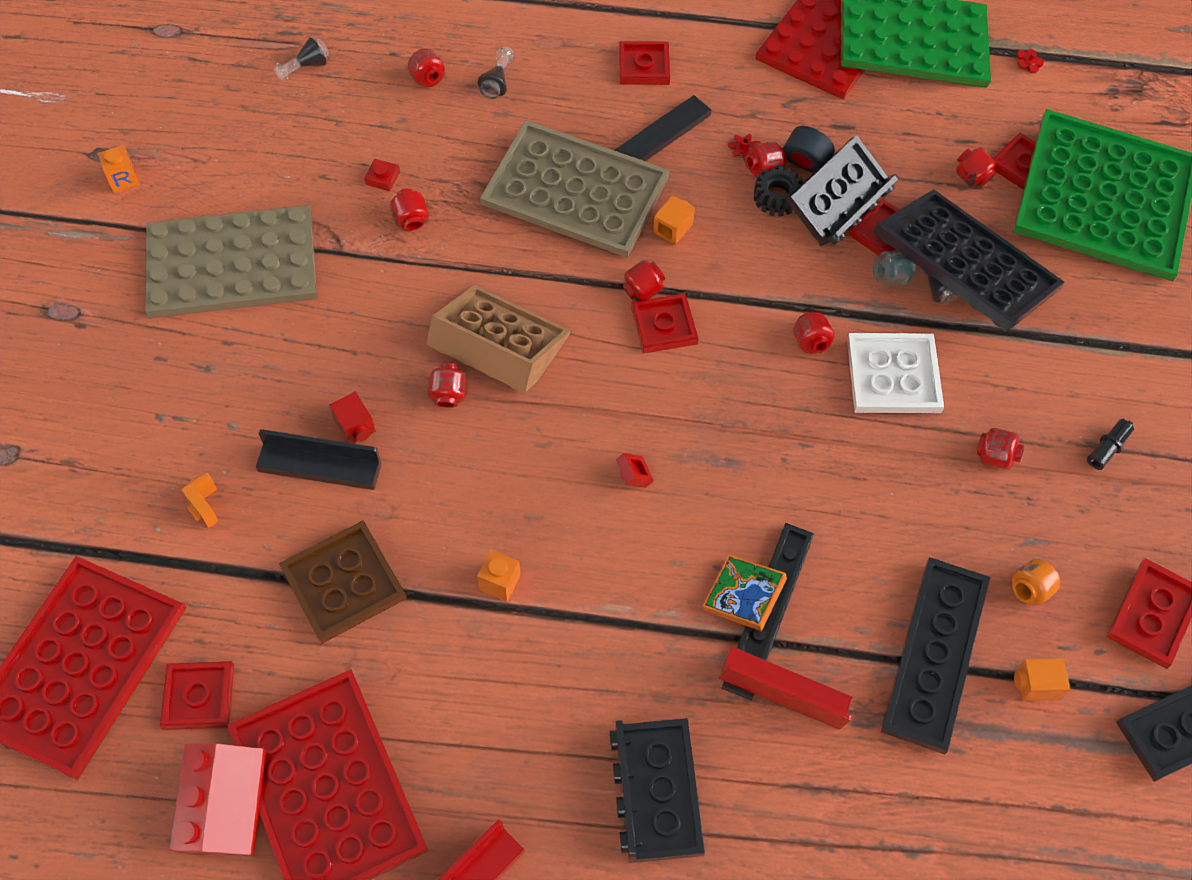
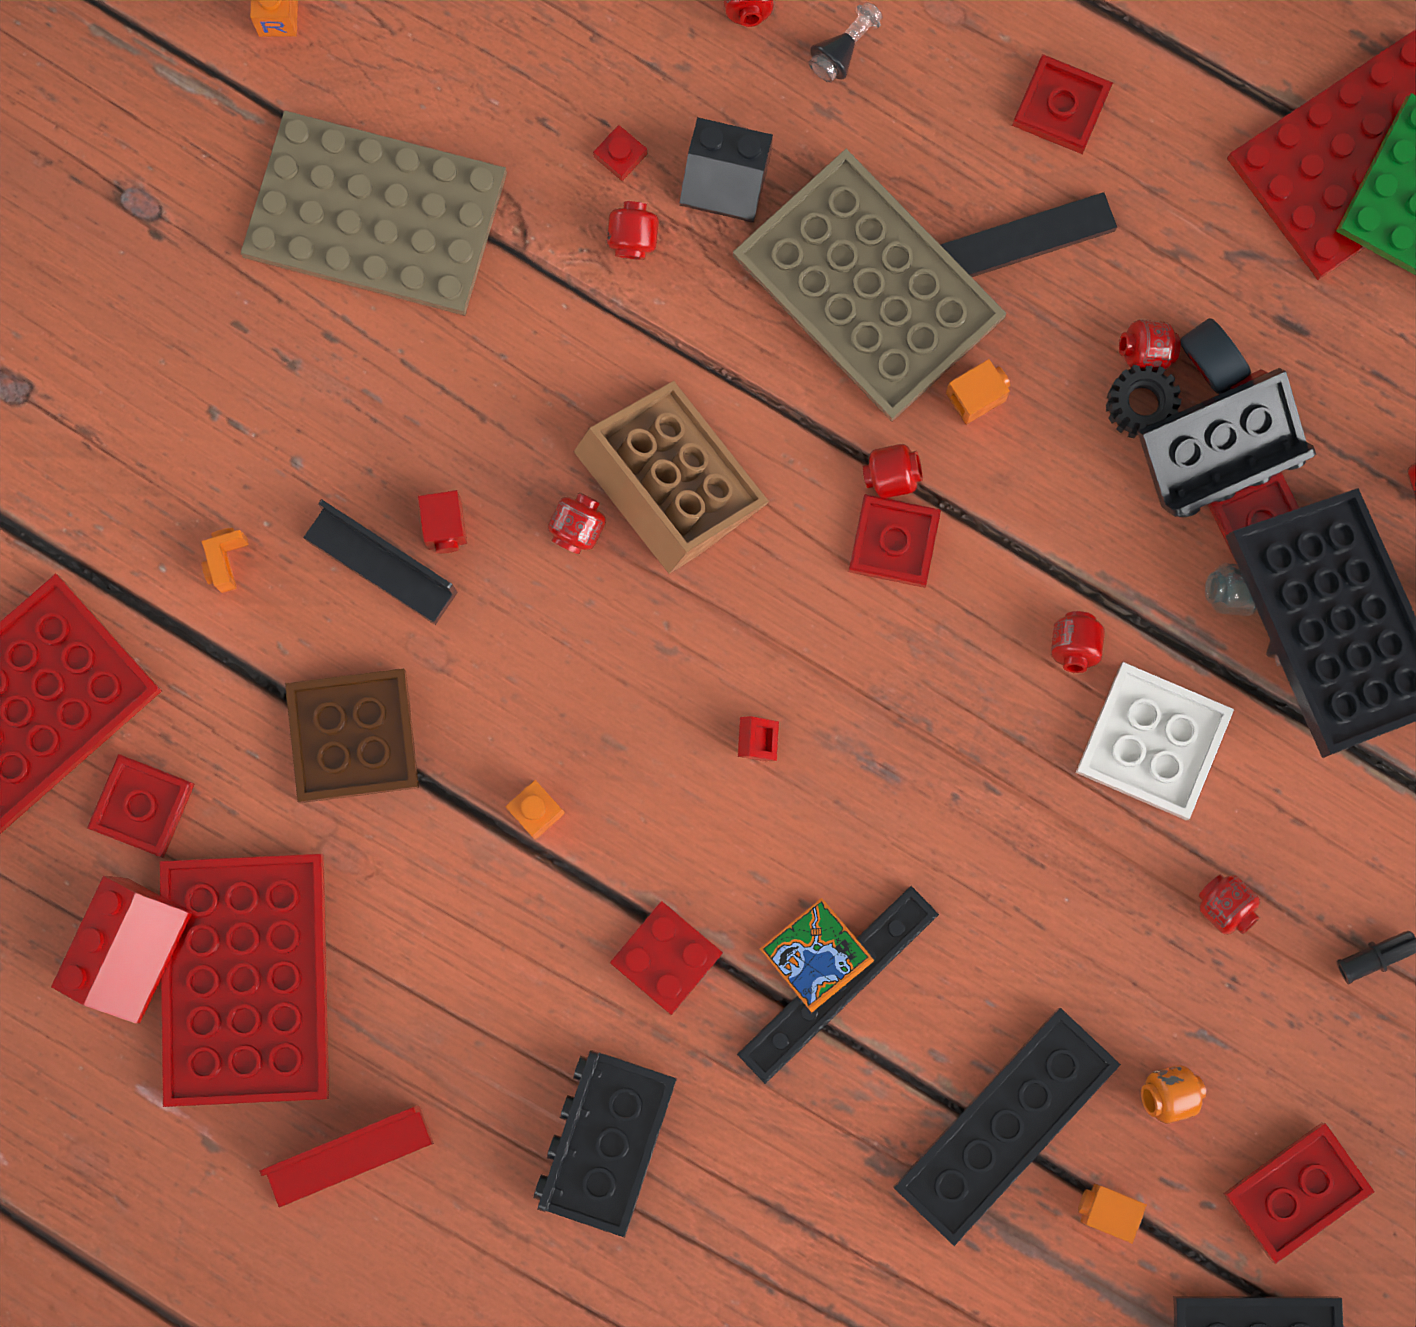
camera: 25 degrees right, 20 degrees up
(454, 157) = (726, 169): none -> slope
(639, 641) = (666, 957): none -> red plate
(742, 145) = (1130, 308): red plant -> none
(786, 688) = (807, 1091): red panel -> none

